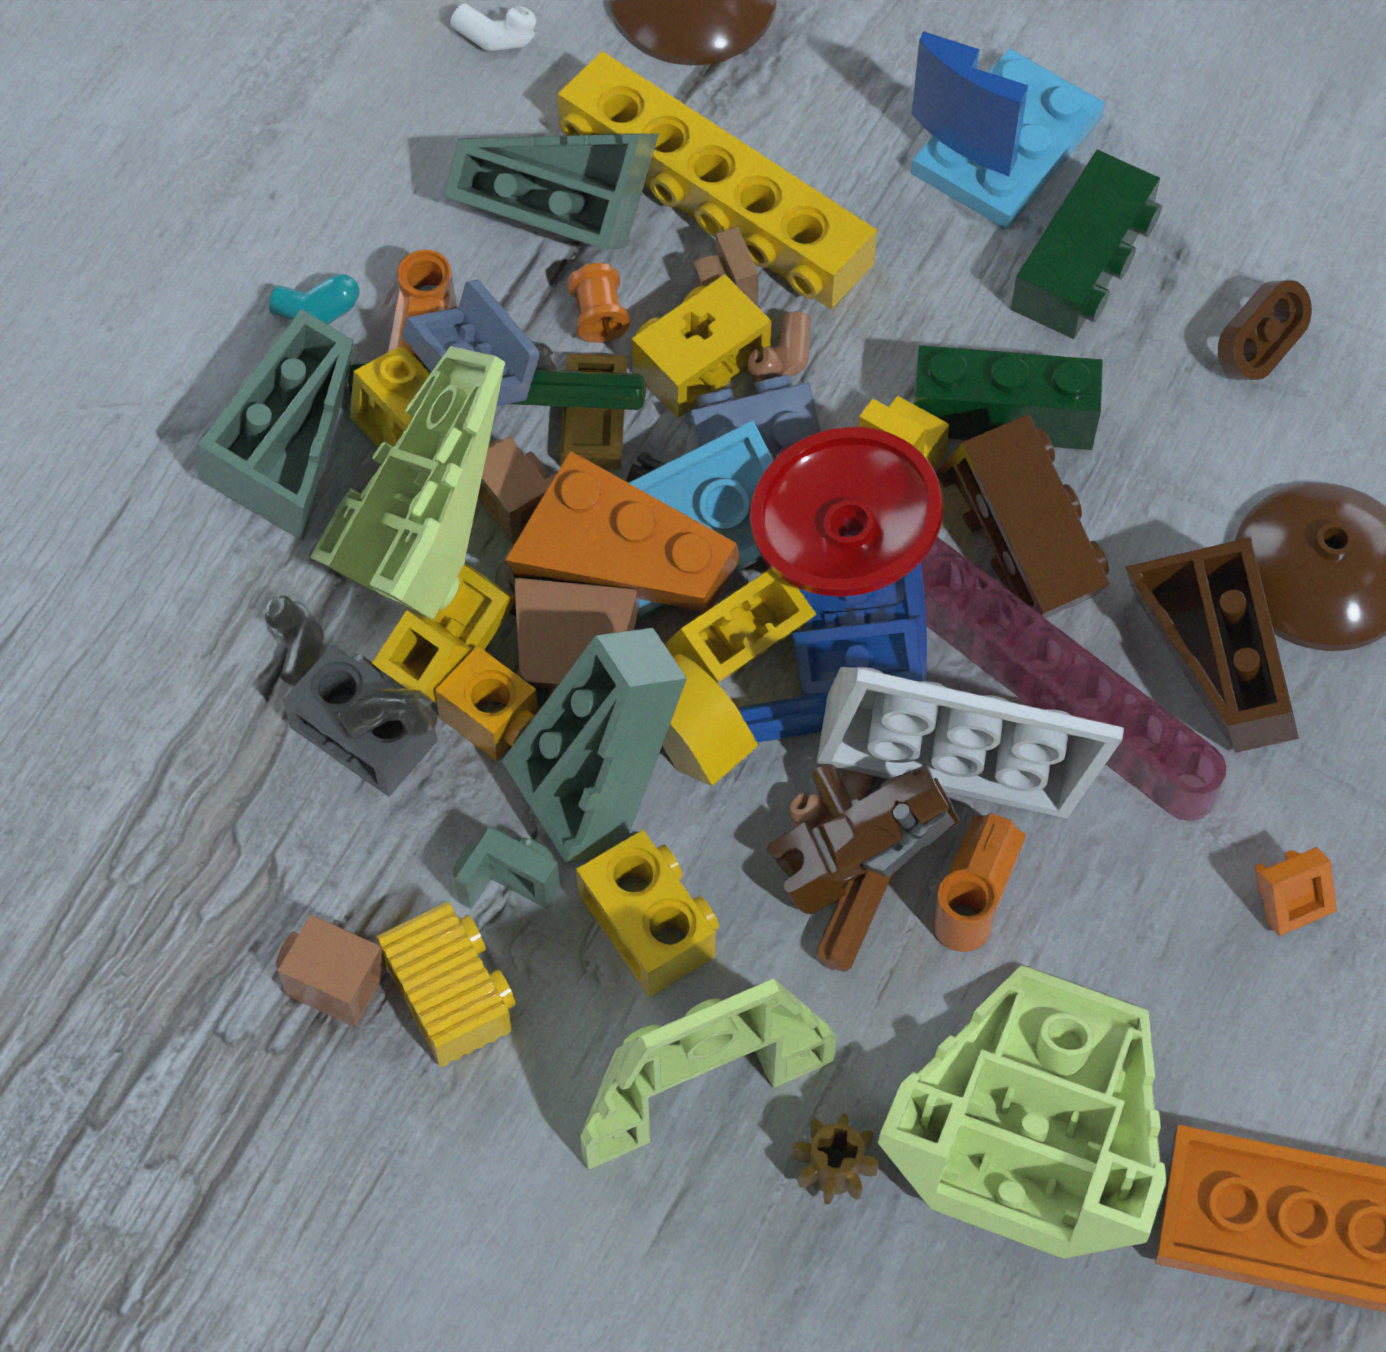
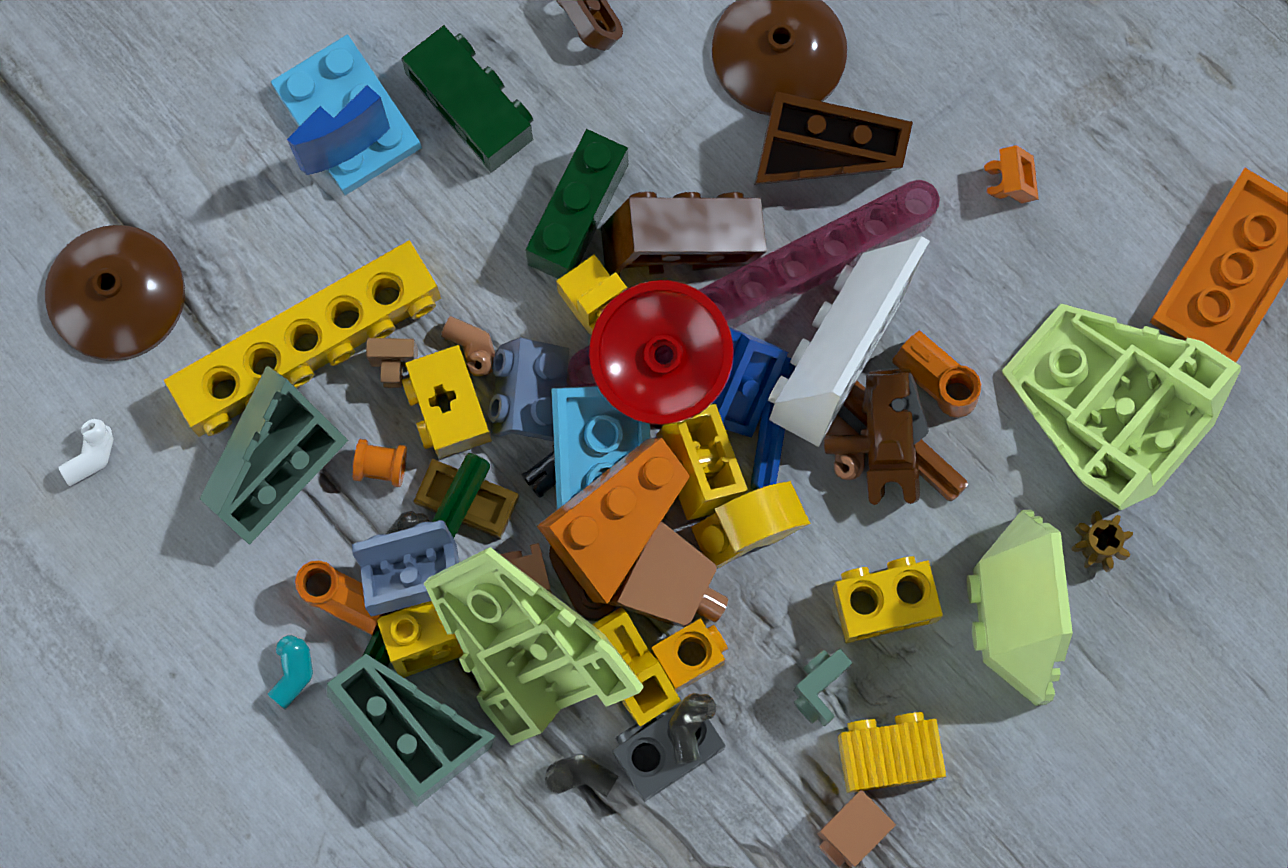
camera: 70 degrees left, 15 degrees up
(598, 742) = (768, 590): sand green wedge -> none

